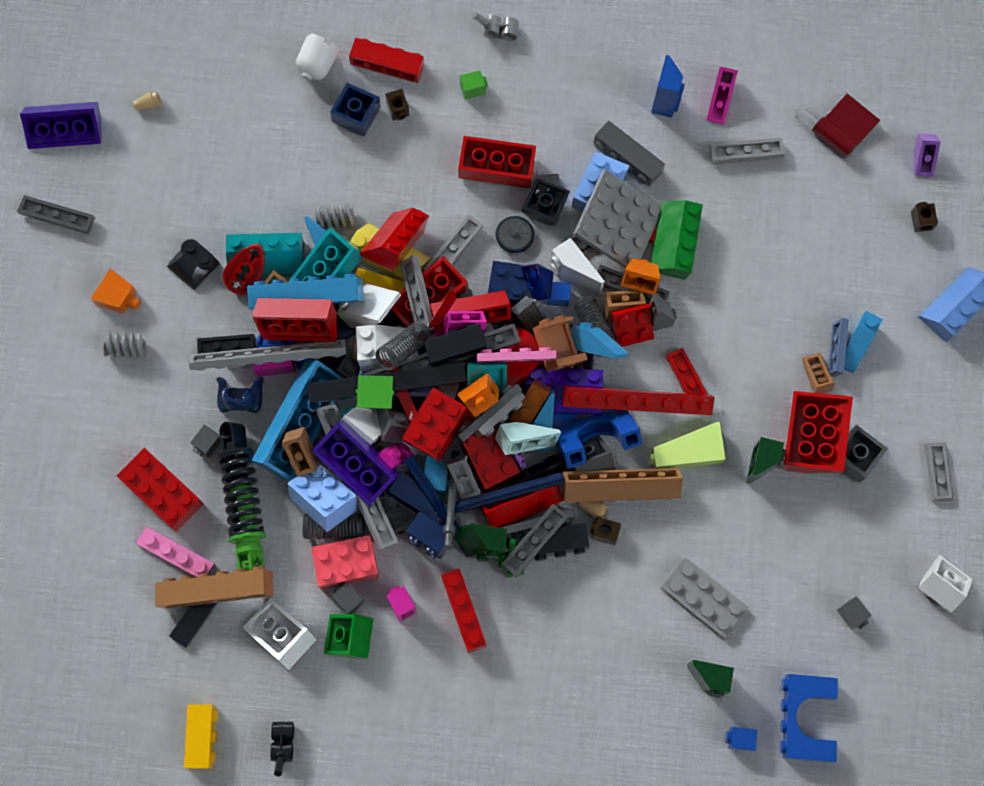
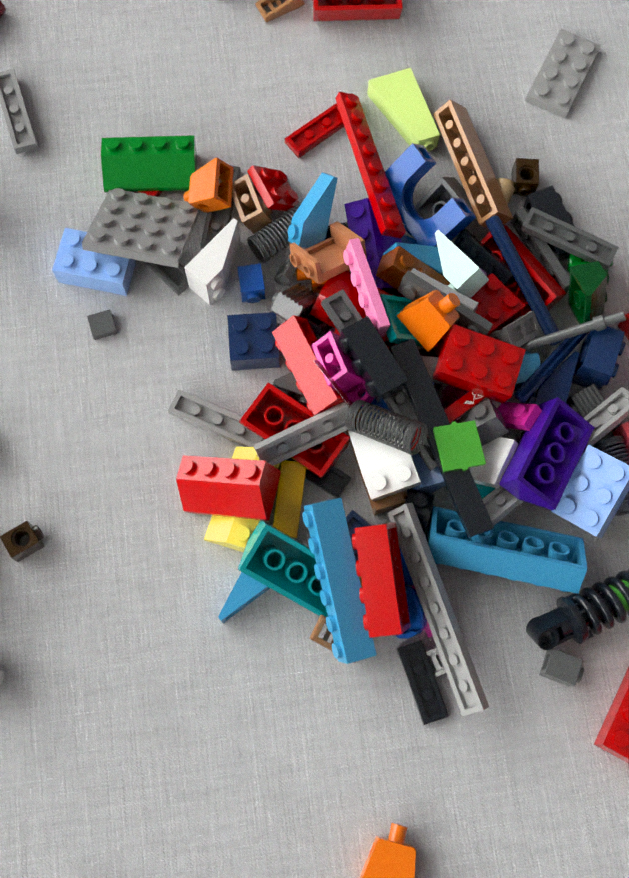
camera: 105 degrees left, 0 degrees up
(124, 346) = (464, 824): light grey piece -> none
(193, 263) = (317, 765): black slope -> none
(235, 265) = (303, 687): red piece -> none
(239, 398) = (492, 640): dark blue hair -> none
(282, 251) = (284, 663): teal slope -> none
(299, 450) = (554, 528): medium nougat brick -> none
(335, 216) = (206, 582): light grey piece -> none
(355, 109) = (41, 594): dark blue brick -> none
(372, 310) = (331, 479): white slope -> none
(497, 161) = (86, 389): red brick -> none
(514, 234) = (181, 351): dark grey wheel -> none
(538, 280) = (247, 299): clear blue slope -> none
(545, 202) = (132, 319): black slope -> none
(628, 151) = (42, 238): dark grey brick -> none
(662, 313) = (254, 154): dark grey slope -> none
(764, 458) = (401, 31): dark green slope -> none

